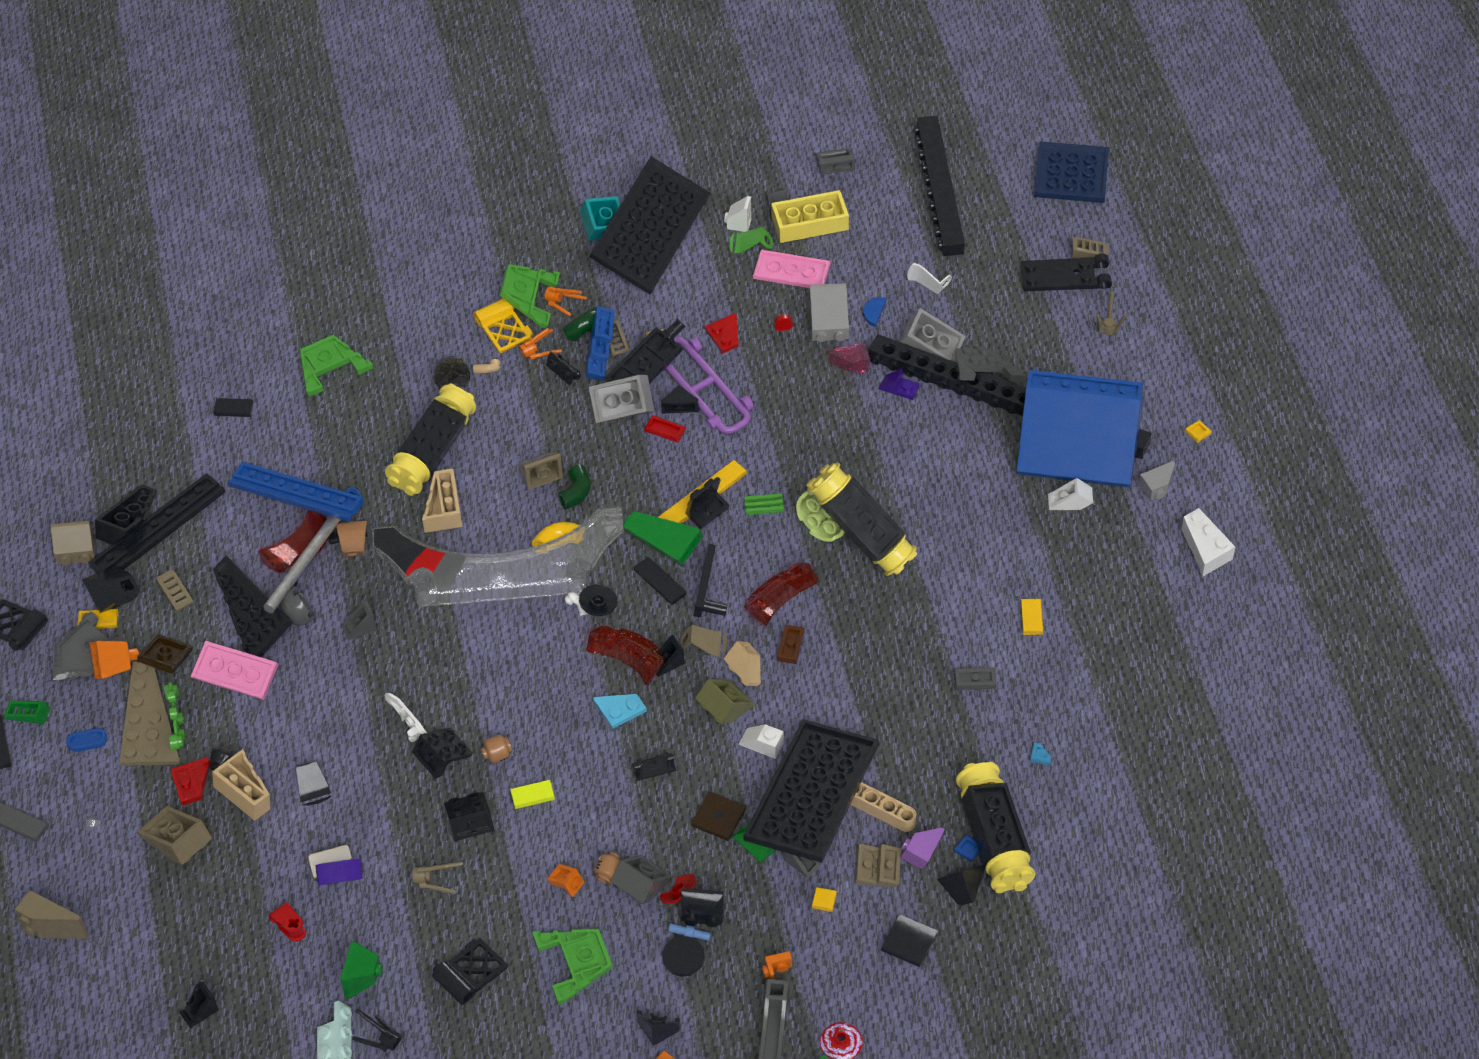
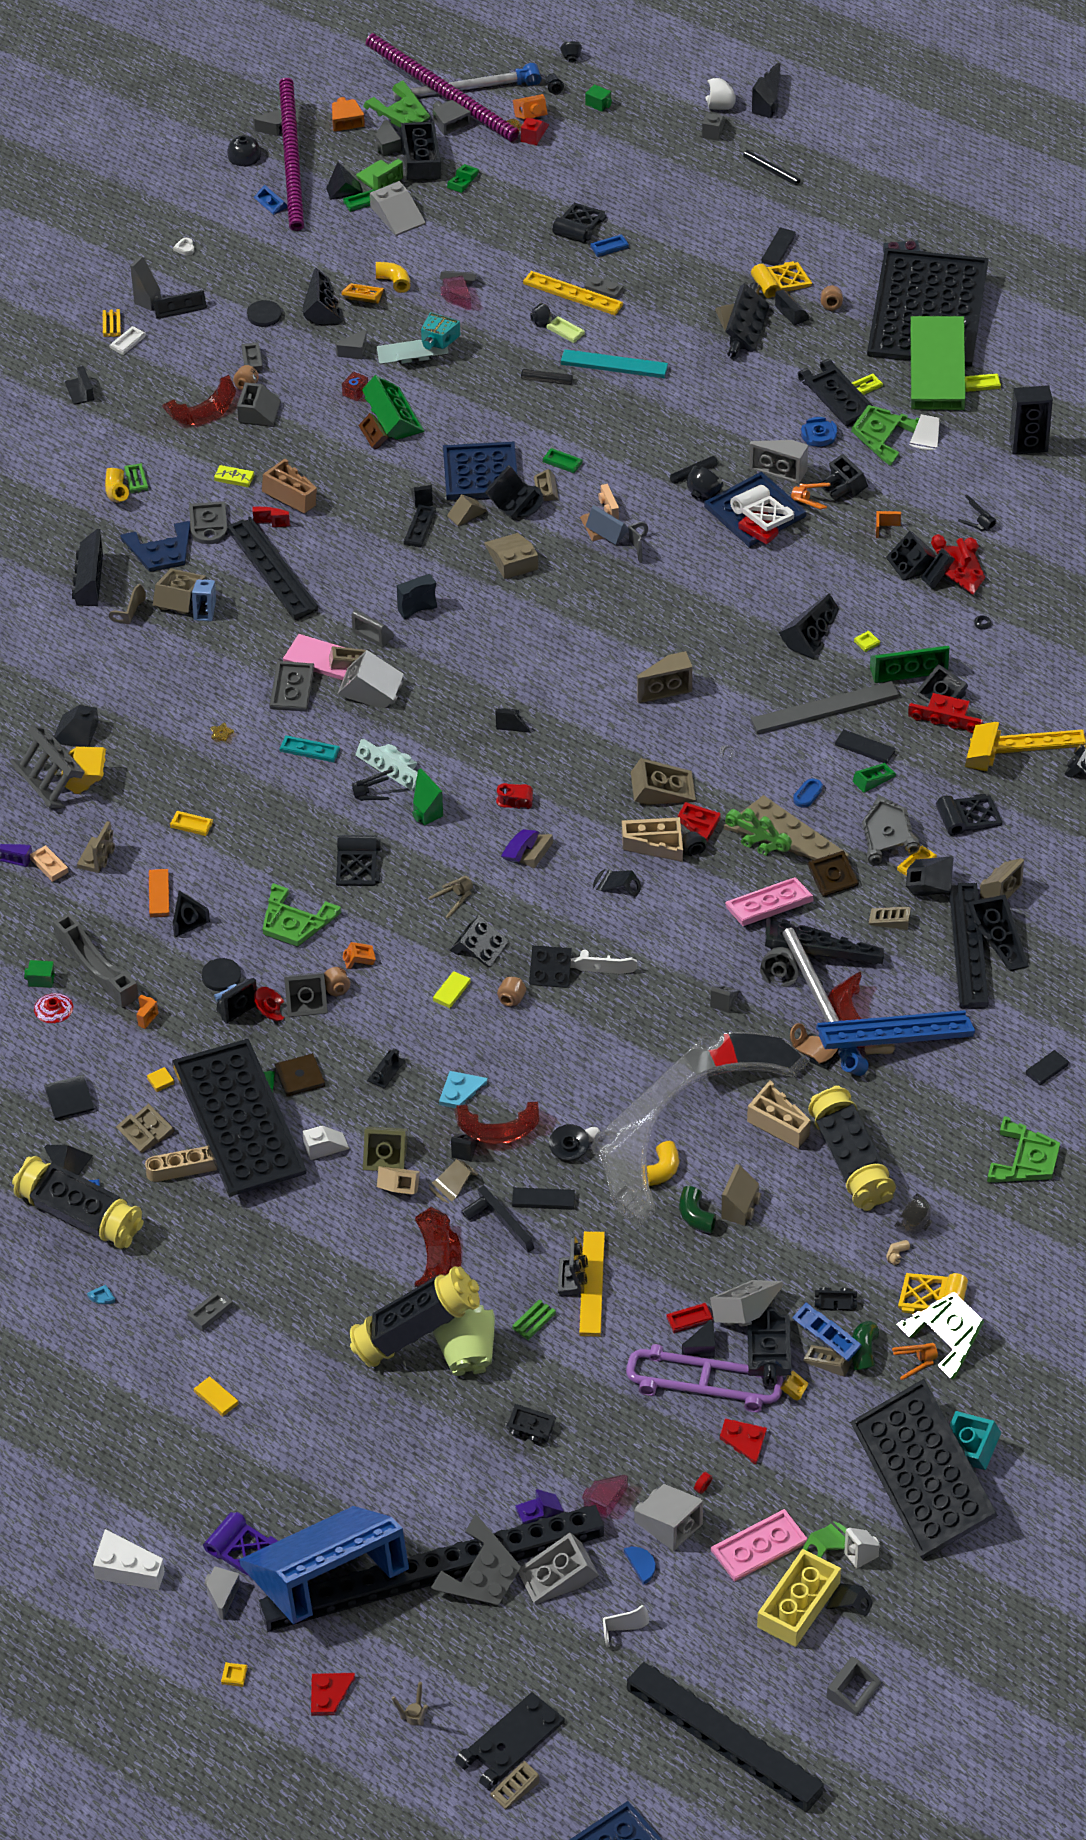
camera: 135 degrees right, 5 degrees down
(111, 657) = (859, 834): orange torso -> none
(529, 347) = (883, 1292): orange plant -> none
(667, 537) = (578, 1220): green slope -> none
(790, 644) = (383, 1226): reddish brown plate -> none
(848, 435) = (531, 1423): none -> black bracket
(921, 846) = (123, 1157): medium lavender slope -> none
(1071, 496) = (281, 1517): white slope -> none
(1118, 512) = (229, 1534): none -> dark purple piece
(1151, 377) = (329, 1691): none -> red wing

